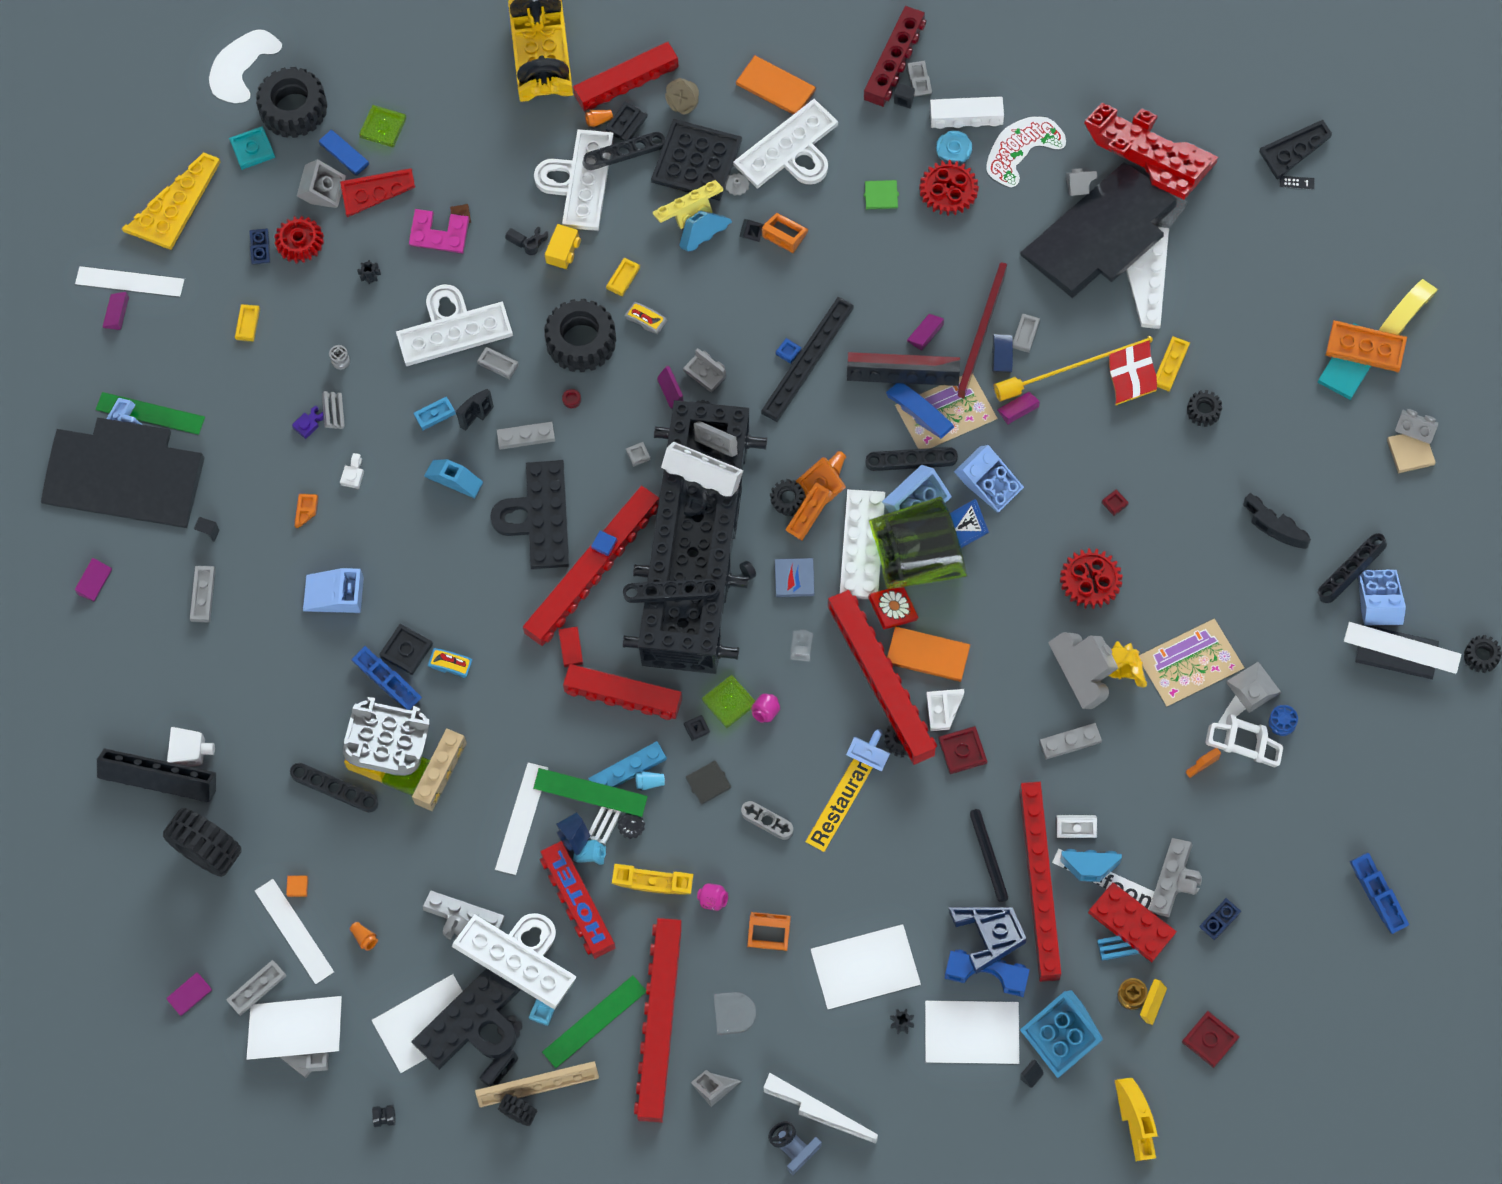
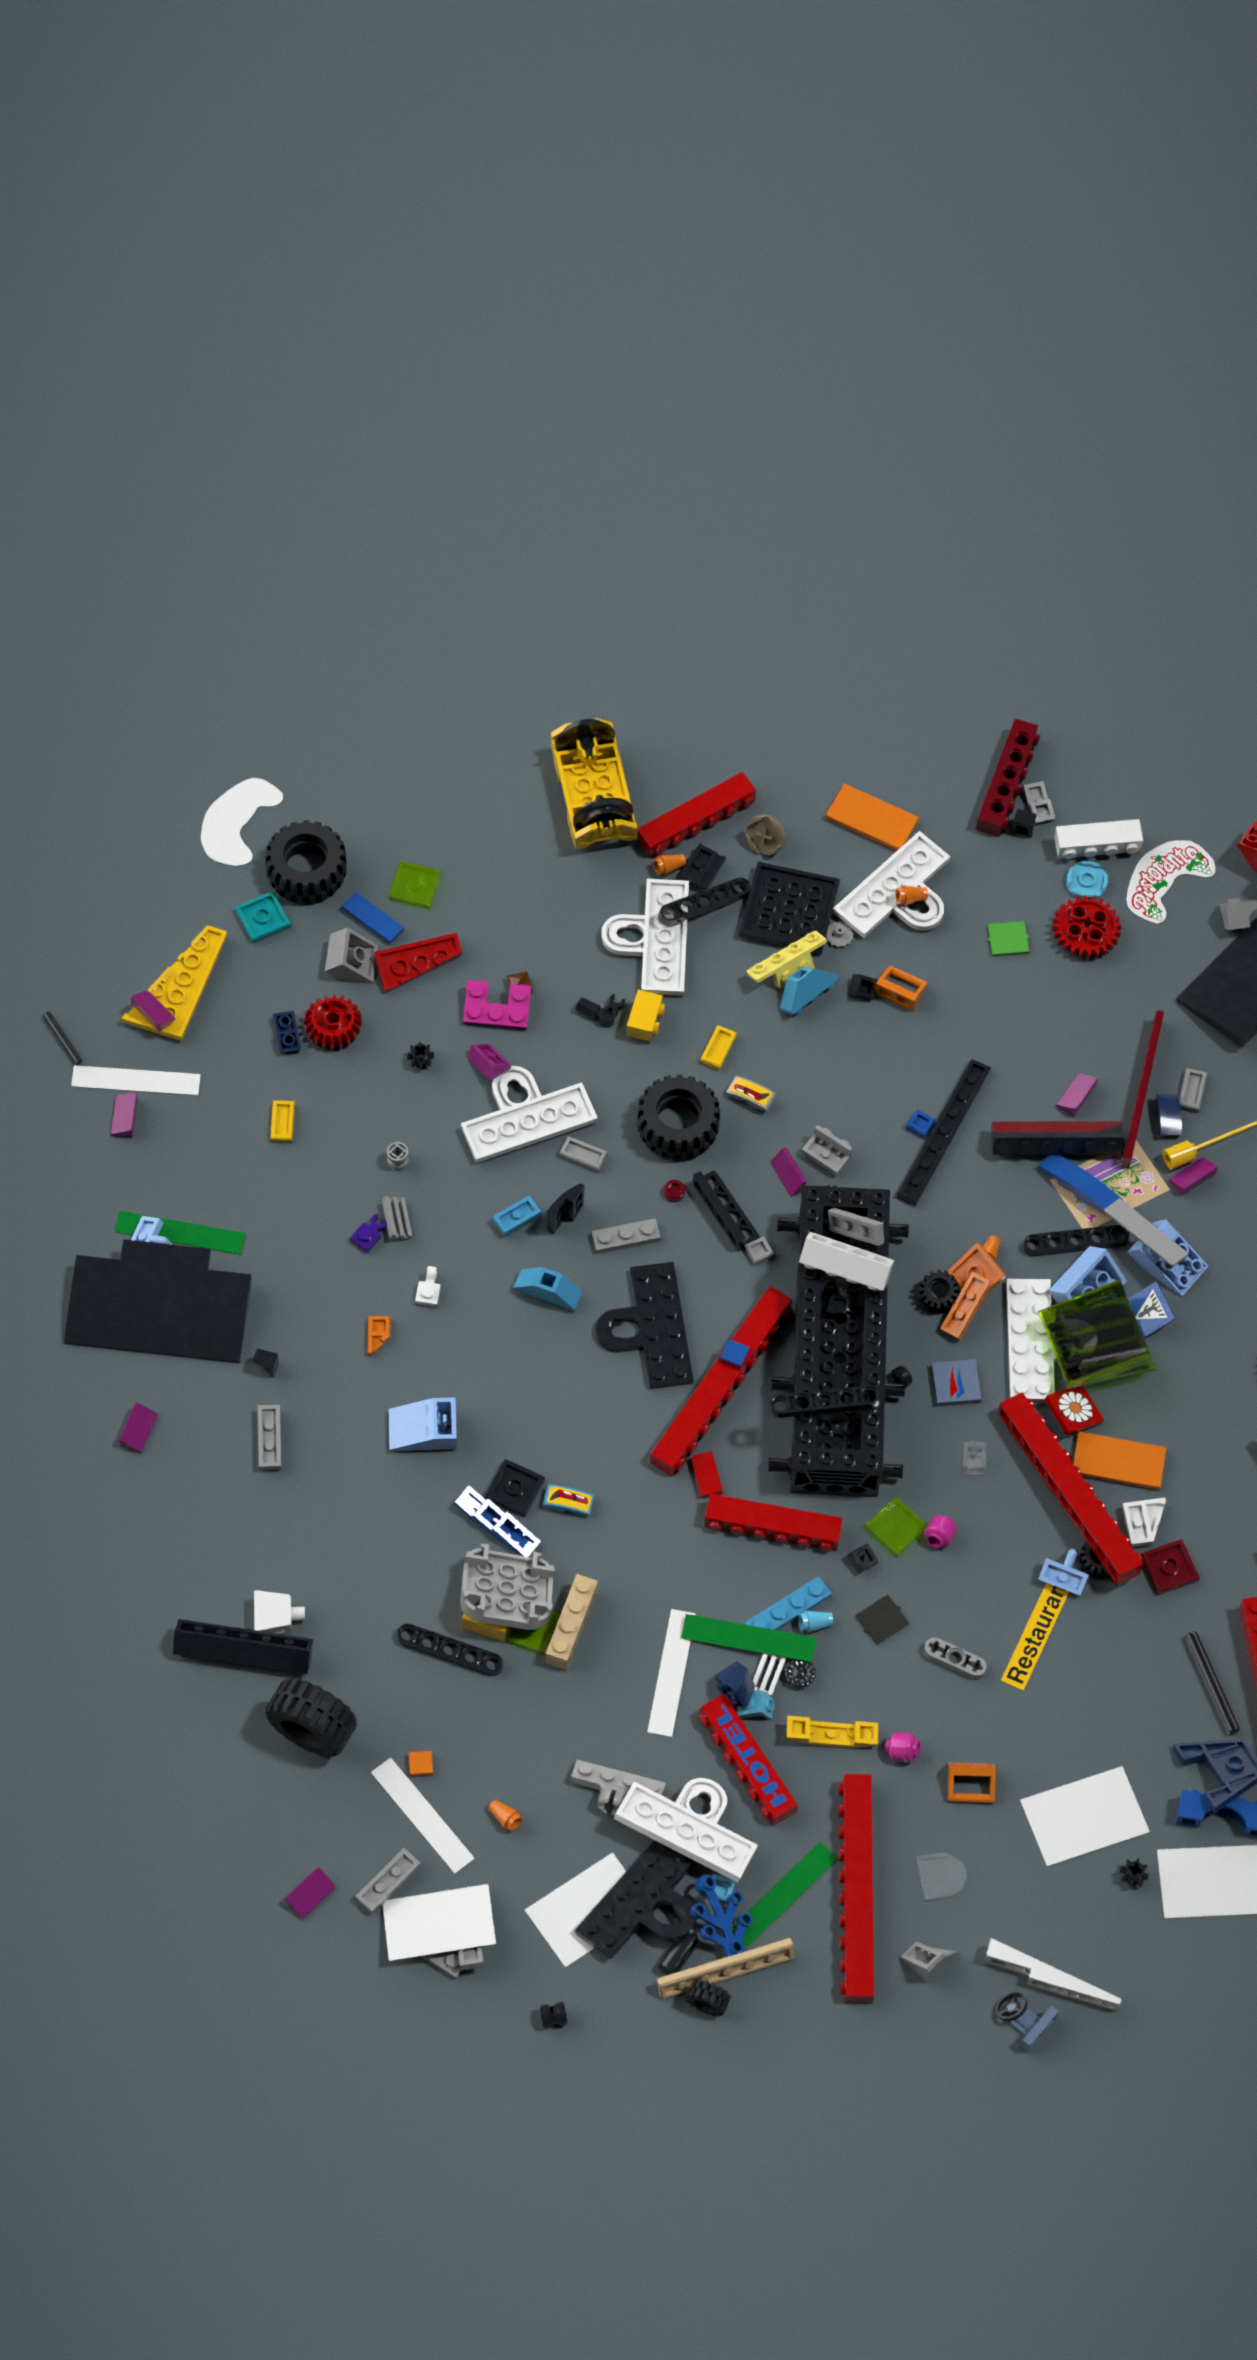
camera: 10 degrees left, 5 degrees down
(74, 246) = (62, 1038): none -> black bar
(148, 222) = (152, 1010): none -> magenta slope
(425, 278) = (488, 1060): none -> magenta slope
(537, 1041) = (721, 1920): none -> blue plant
(610, 419) = (722, 1212): none -> black fence
(798, 153) = (909, 894): none -> orange cone
(970, 456) = (1146, 1232): none -> light grey piece

